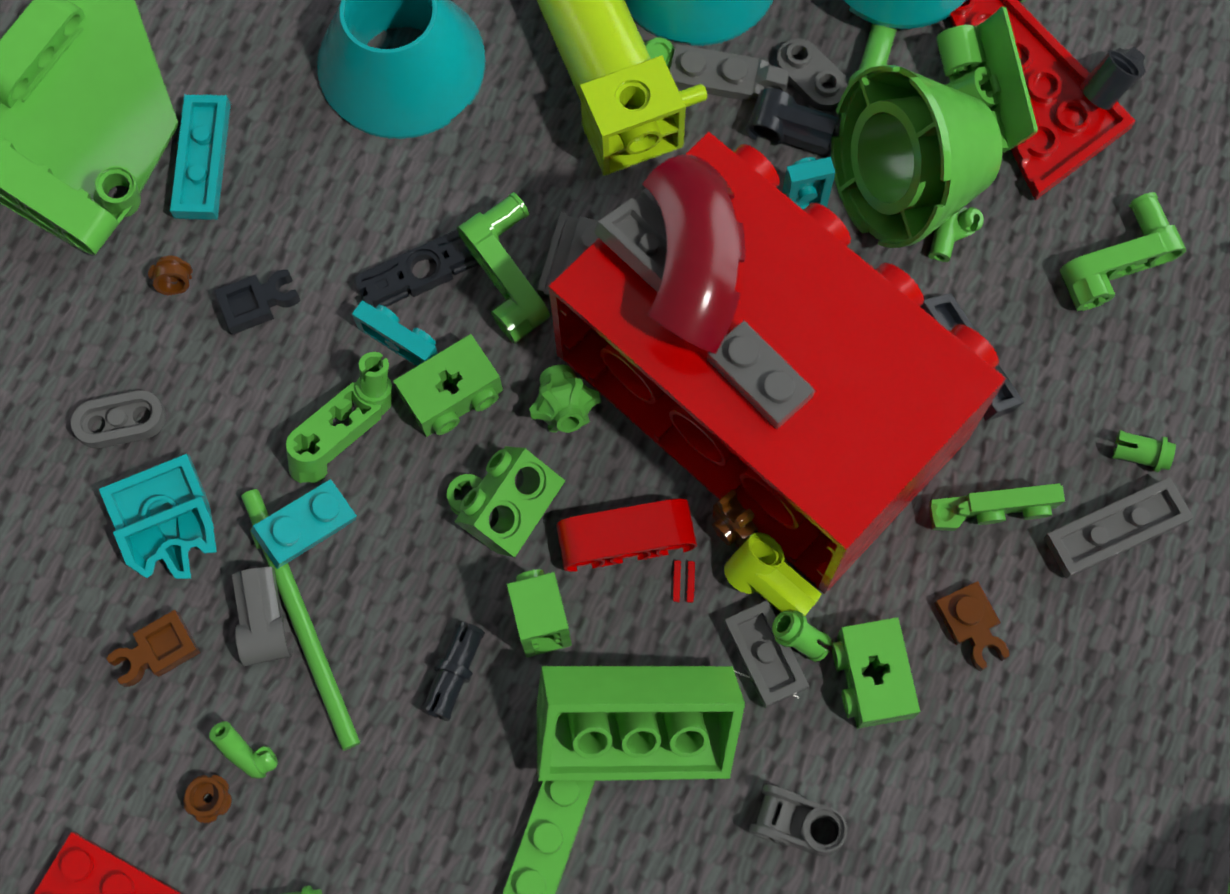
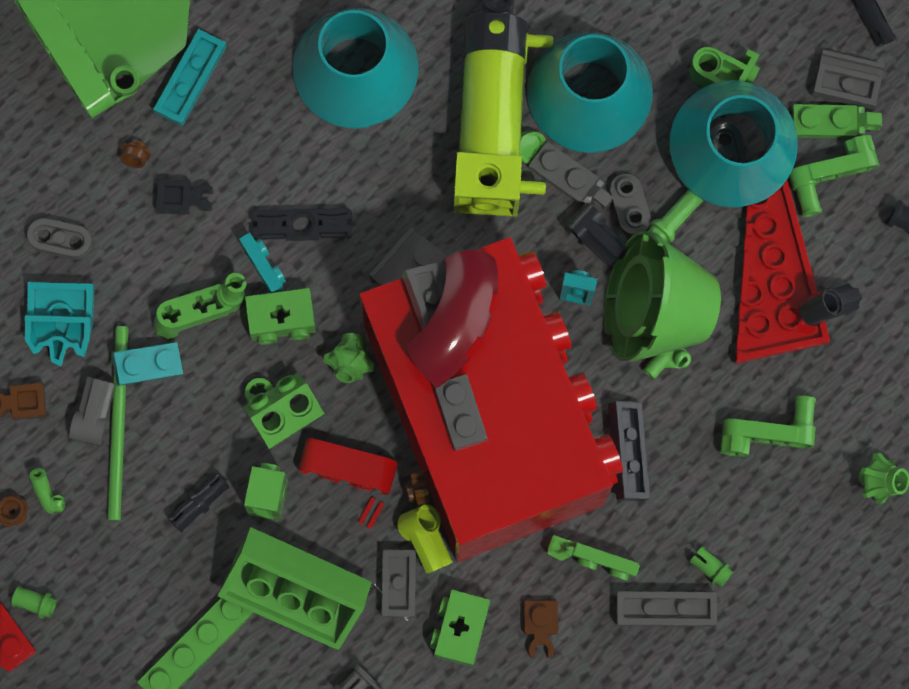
camera: 20 degrees right, 5 degrees up
(522, 306) = (348, 221): bright green beam -> none
(794, 631) = (420, 577): bright green pin -> none
(988, 67) = (738, 268): bright green panel -> none

